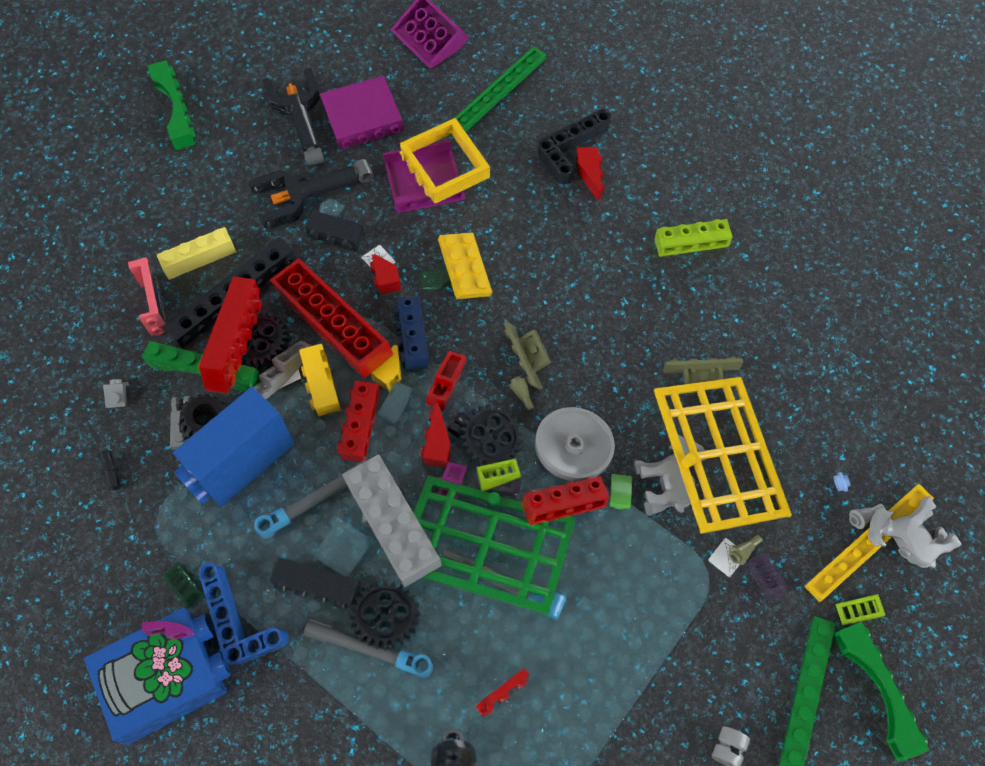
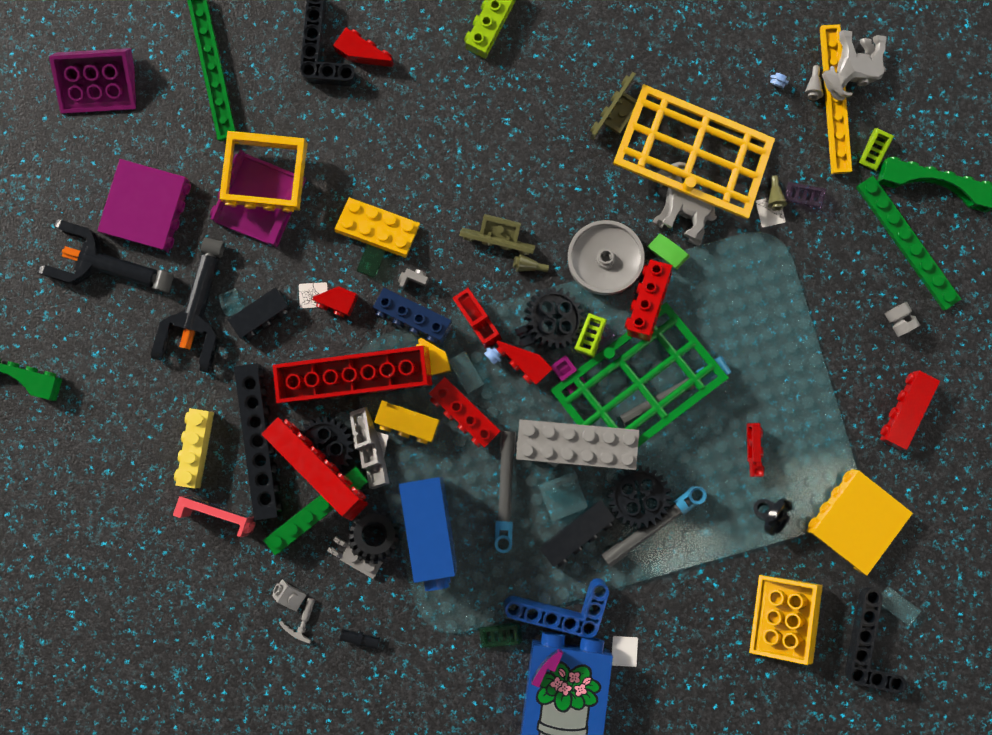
camera: 55 degrees left, 20 degrees up
(86, 422) = (305, 618): none -> light grey piece
(234, 708) = (624, 651): none -> white sticker
(424, 411) = (493, 355): none -> light blue plate
(442, 309) = (418, 277): none -> light grey bracket

